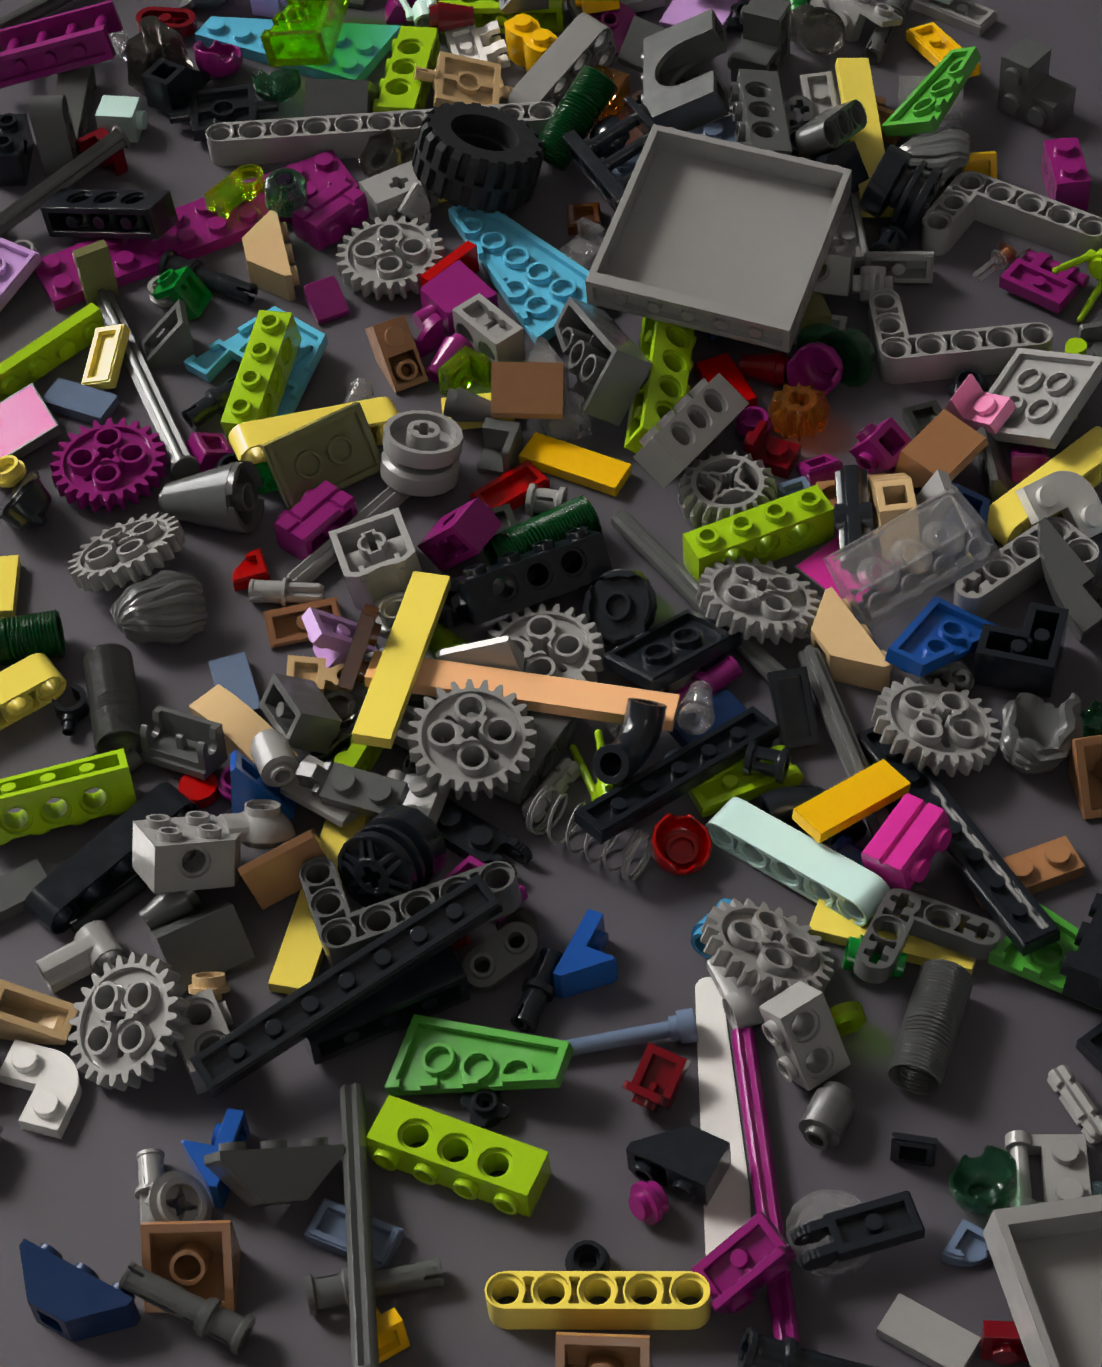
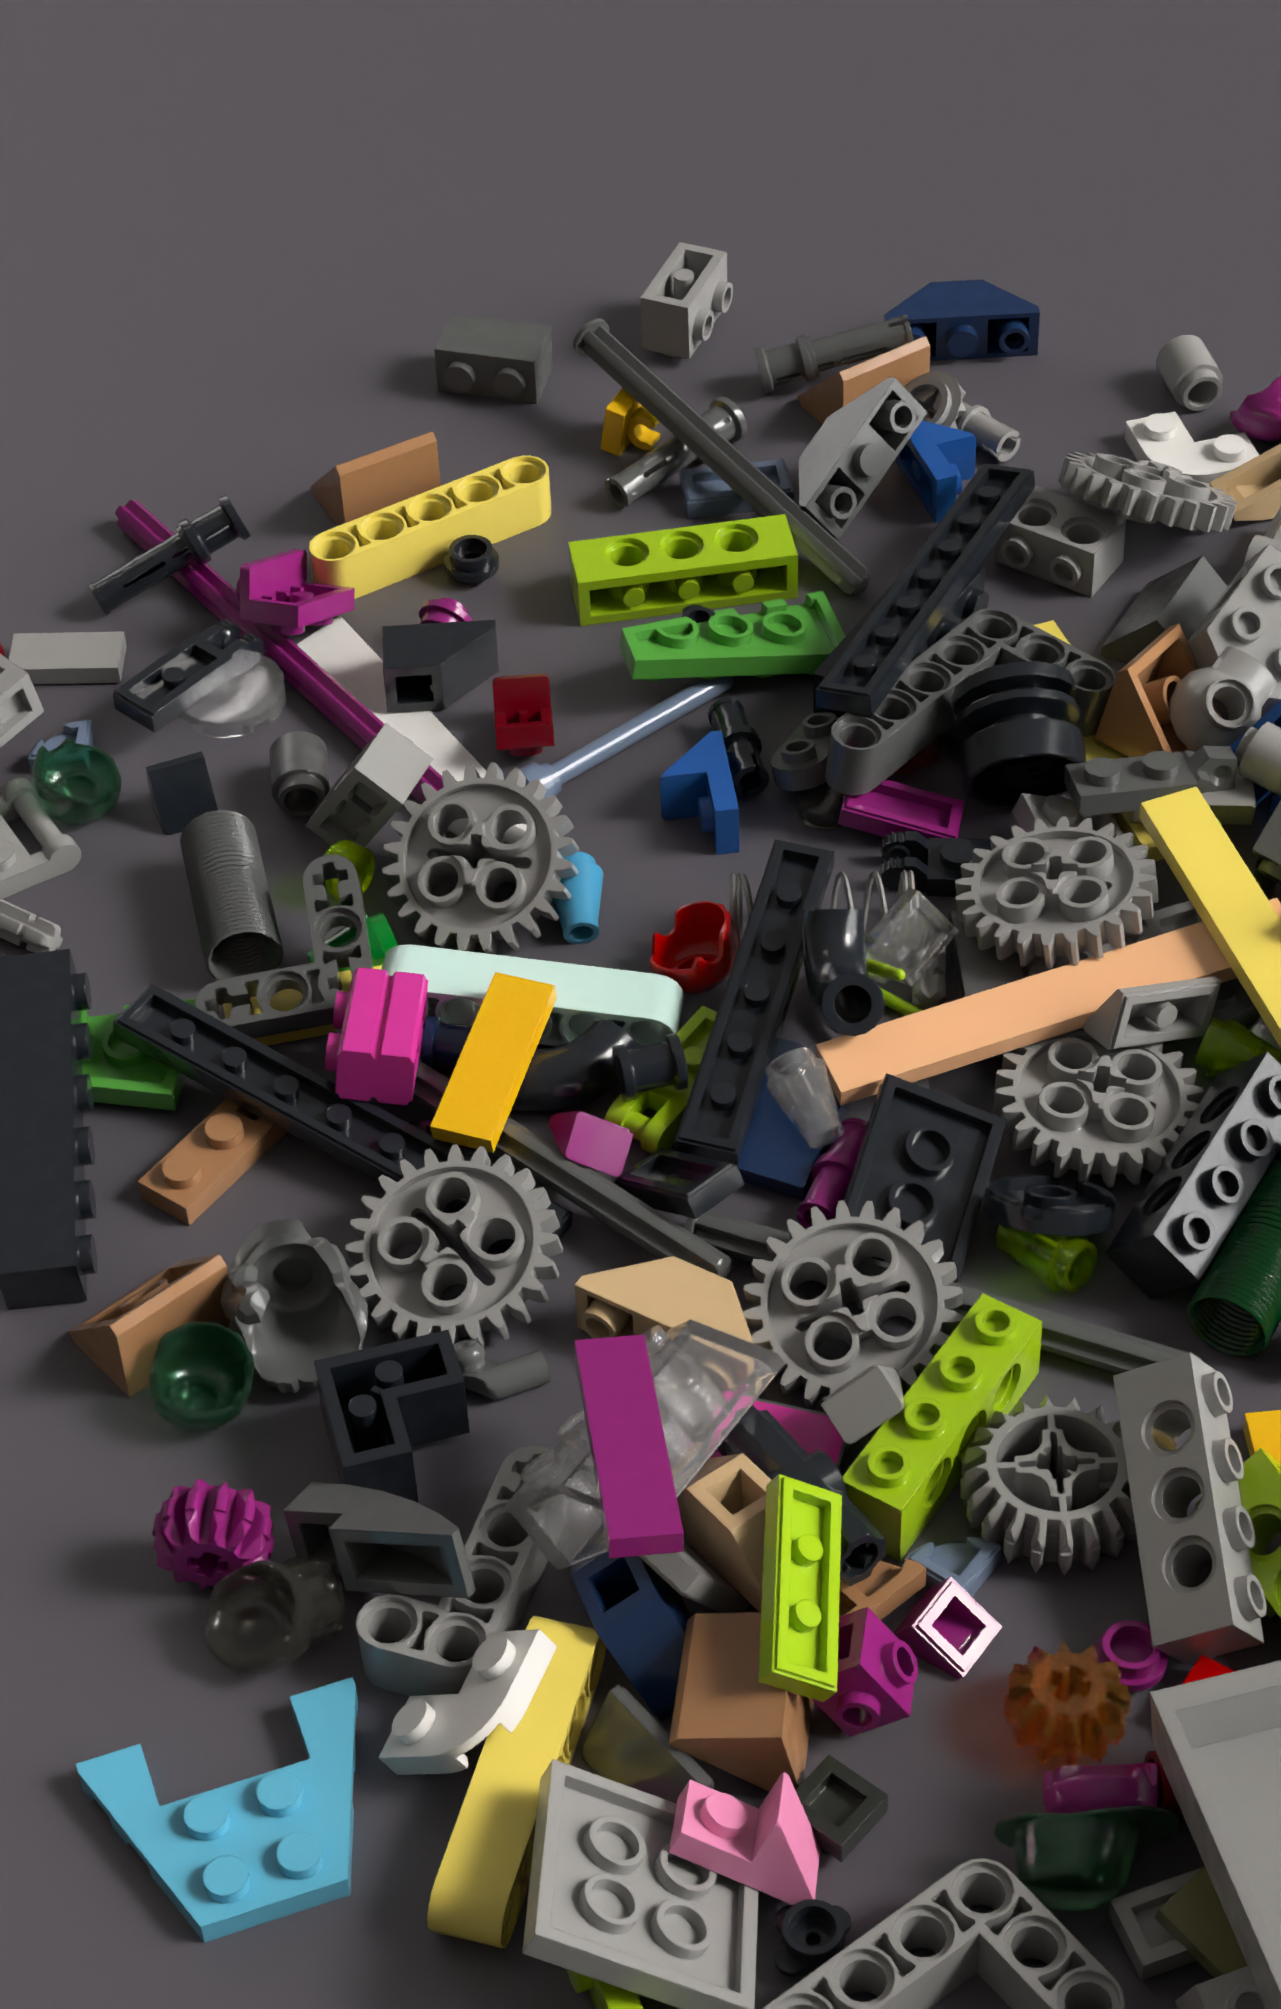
camera: 145 degrees right, 5 degrees down
(206, 980) = (1126, 583): tan plate -> none
(571, 774) = (909, 936): none -> clear bracket
(775, 452) = (1056, 1611): dark red bracket -> none
(791, 544) = (865, 1402): none -> light grey slope
(821, 759) = (591, 1141): none -> magenta slope
(895, 447) = (800, 1588): none -> lime tile
(935, 521) = (628, 1447): none -> magenta tile
(936, 638) = (532, 1373): blue wing -> none

